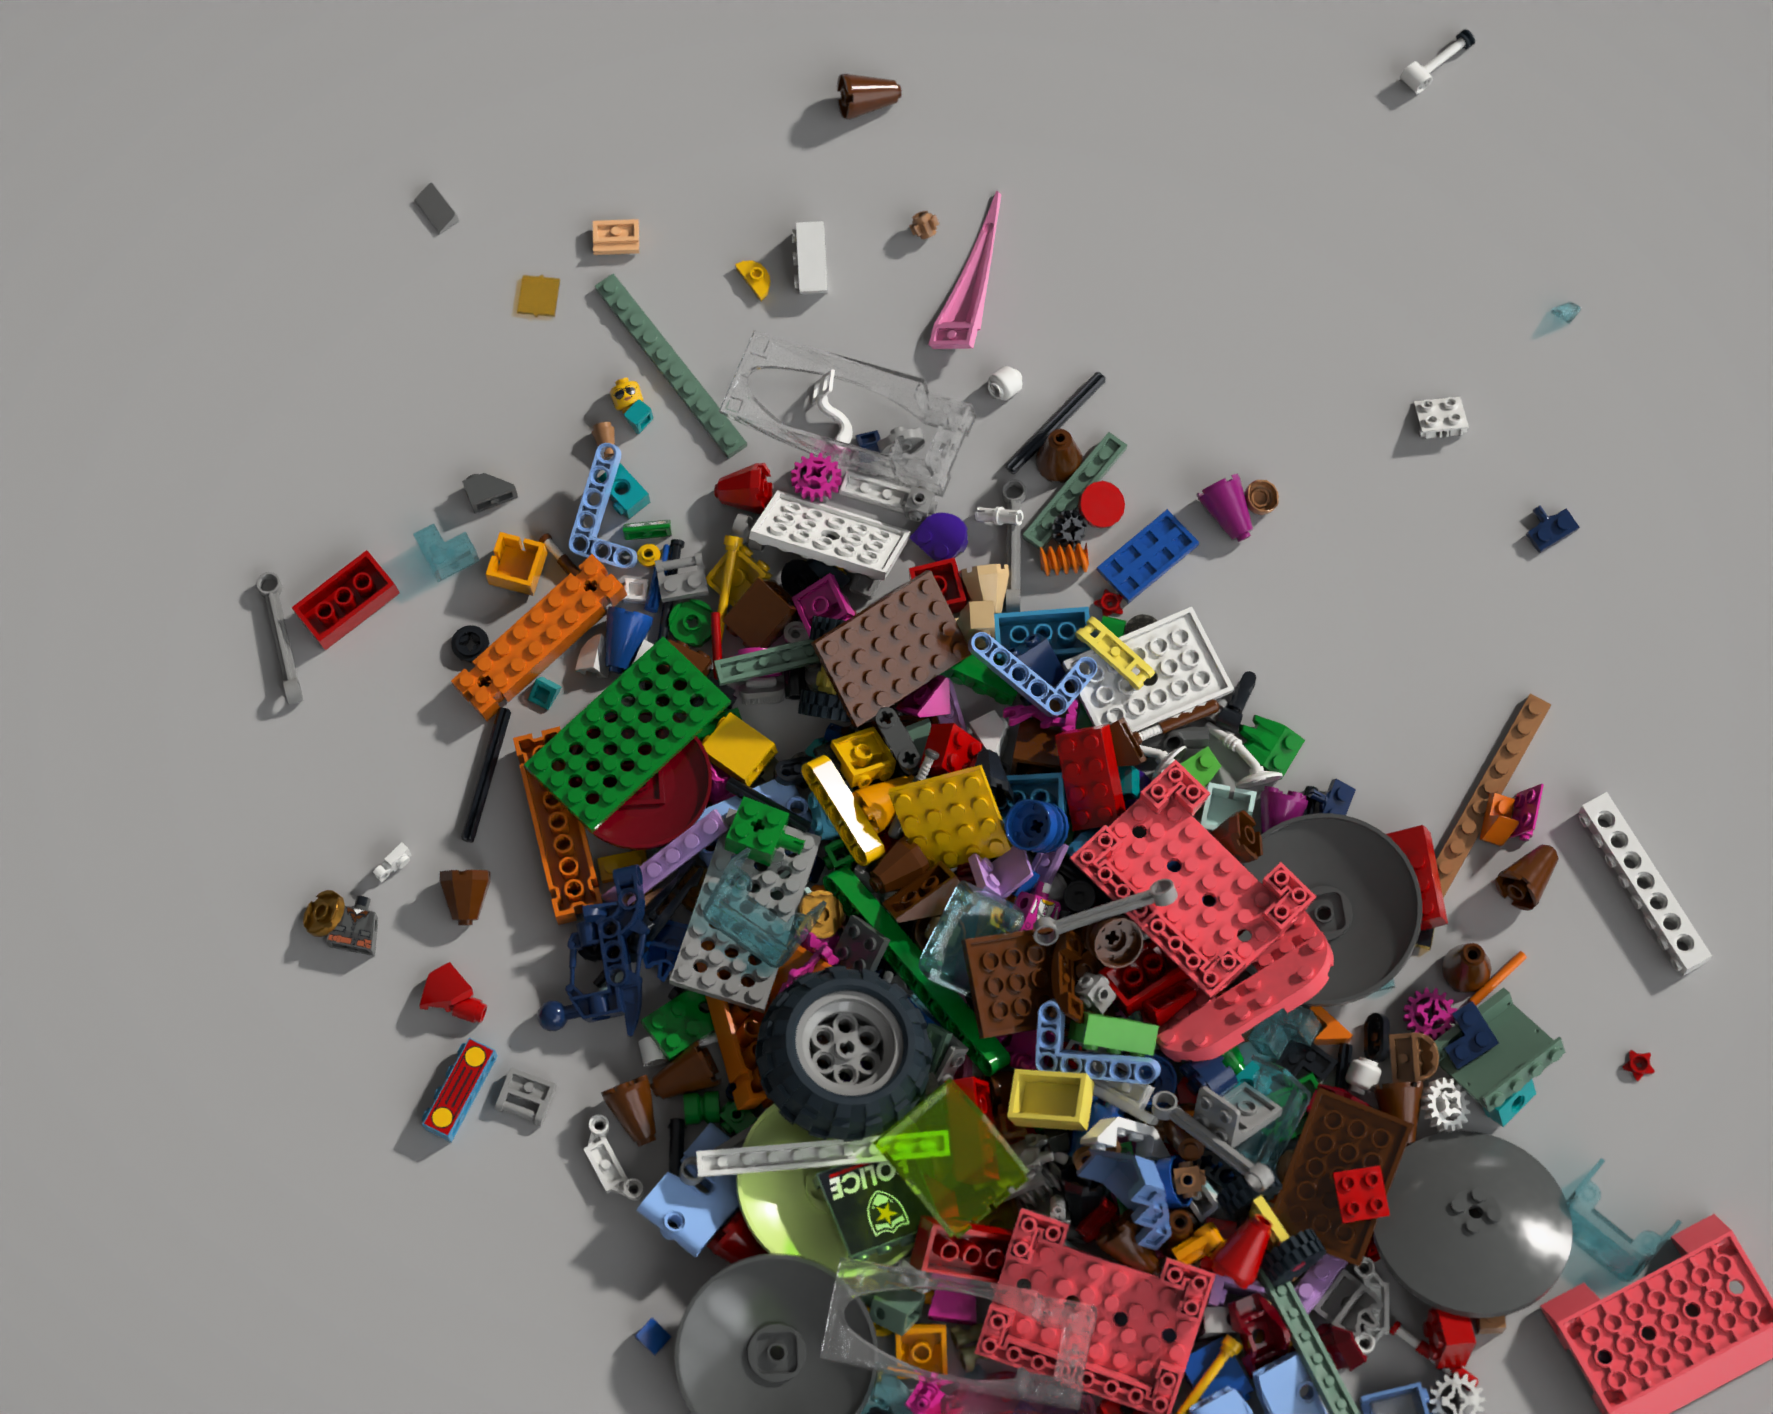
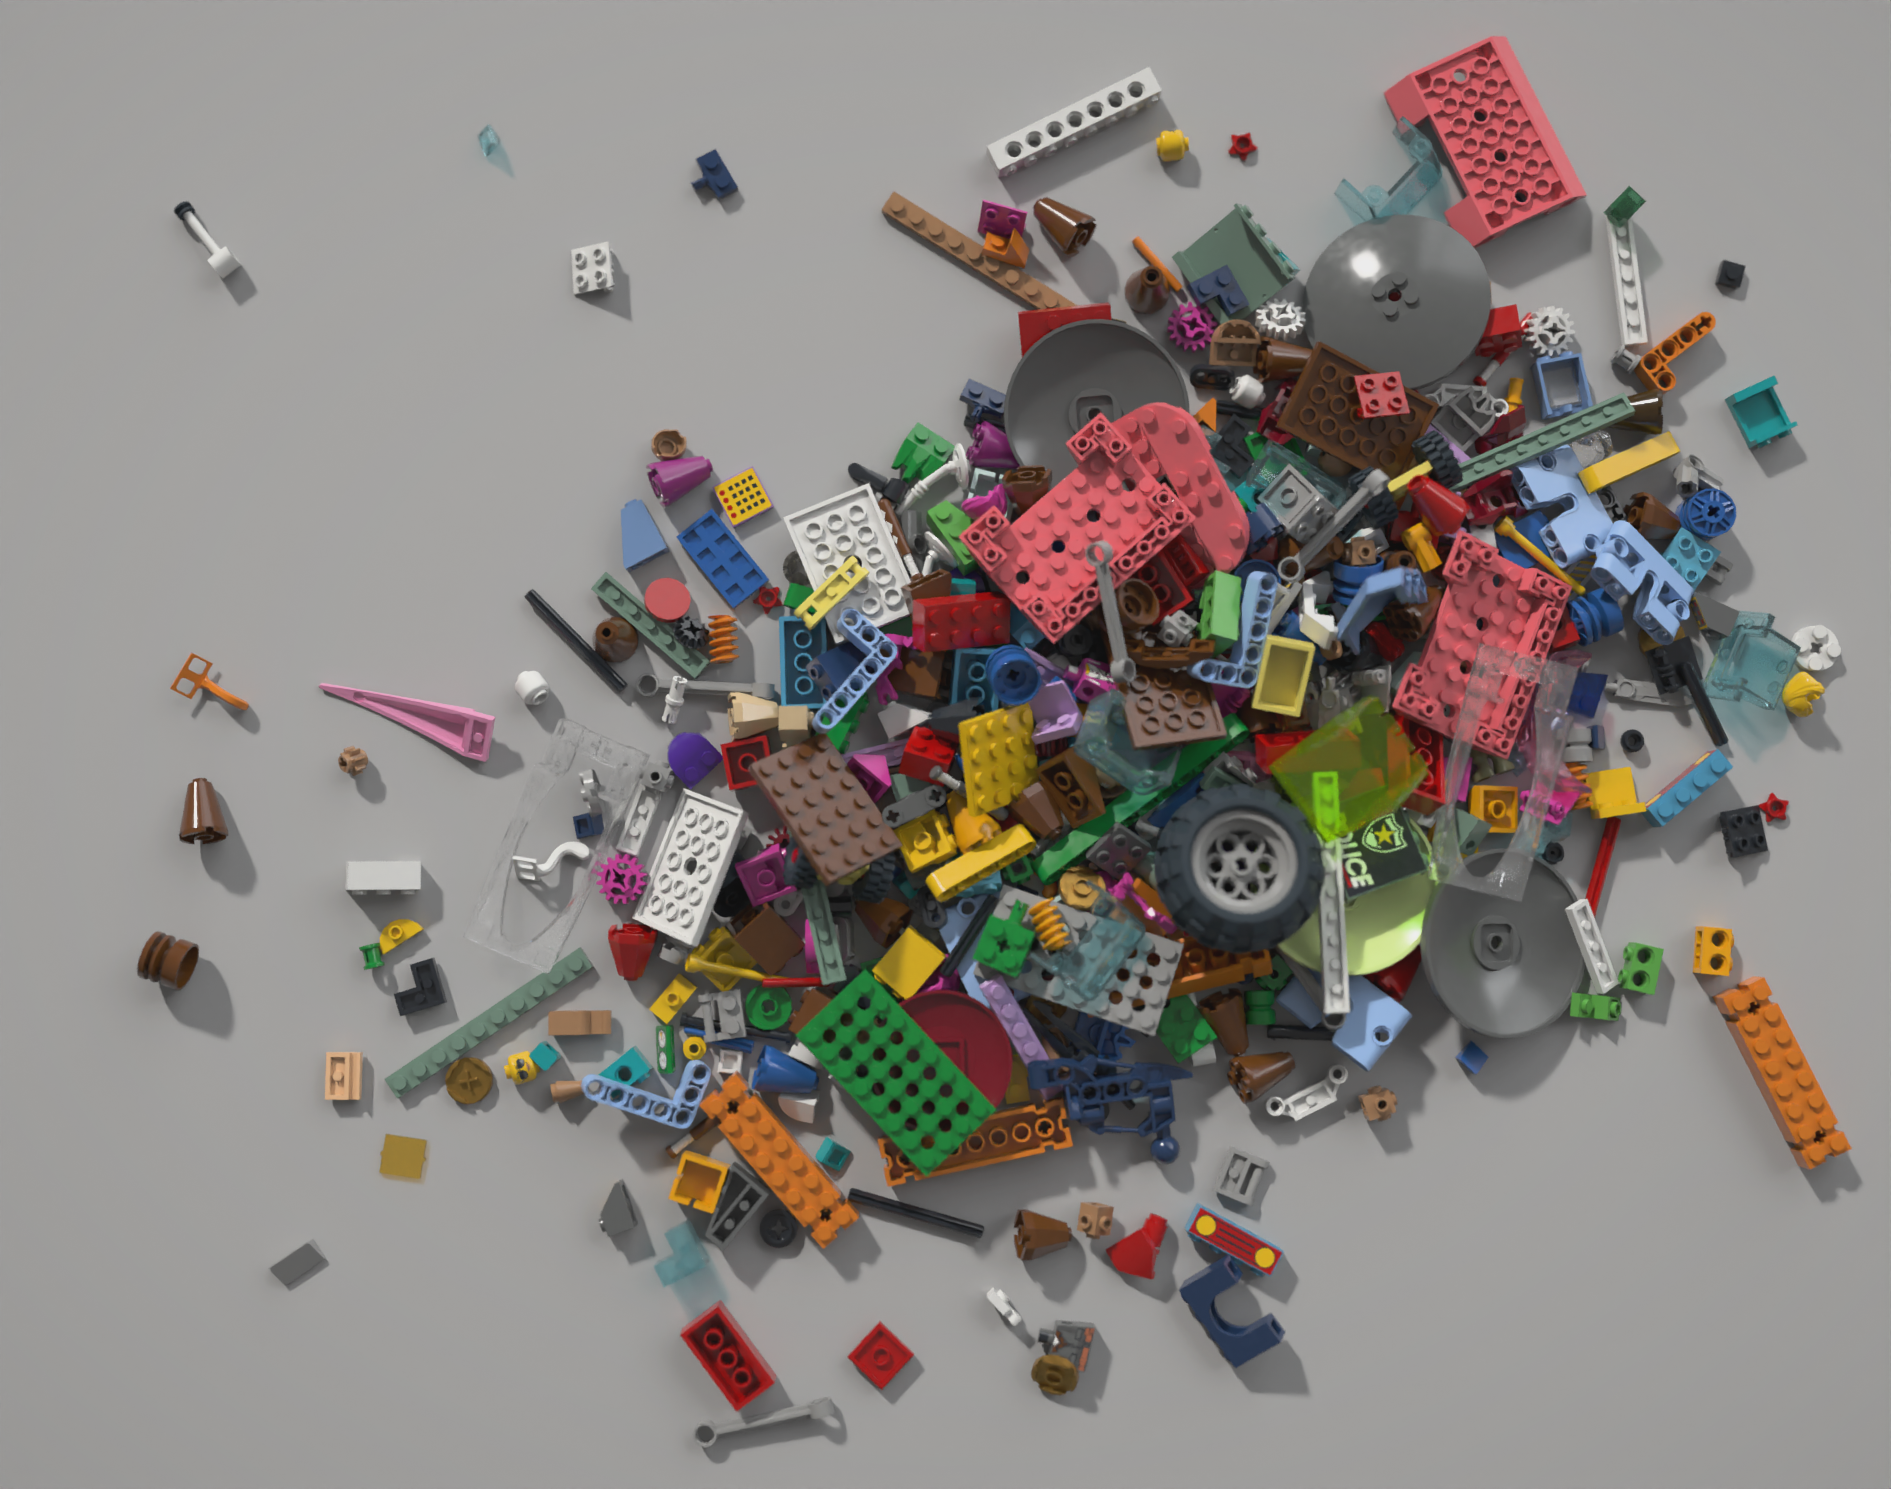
camera: 90 degrees left, 15 degrees up
(344, 746) = (880, 1355): none -> red plate
(401, 1058) = (1237, 1342): none -> dark blue arch
(480, 947) = (1095, 1219): none -> medium nougat brick
(492, 599) = (736, 1205): none -> dark grey wedge
(599, 1225) = (1370, 1100): none -> medium nougat brick
(613, 350) = (469, 1080): none -> pearl gold tile
(672, 445) = (579, 1022): none -> medium nougat piece
(698, 533) = (673, 998): none -> yellow plate
(700, 306) = (427, 992): none -> black plate
(723, 74) = (168, 960): none -> reddish brown wheel
(732, 254) = (372, 956): none -> green bush
(779, 872) = (1049, 925): none -> light orange piece
(784, 727) = (884, 919): none -> reddish brown cone
(996, 87) = (202, 681): none -> orange piece
(1166, 475) = (640, 536): none -> medium blue slope
(1213, 573) = (743, 497): none -> yellow tile
(1216, 806) = (980, 505): none -> dark pink hair
(1381, 1364) = (1514, 393): none -> light orange pin
(1629, 987) = (1172, 145): none -> yellow head

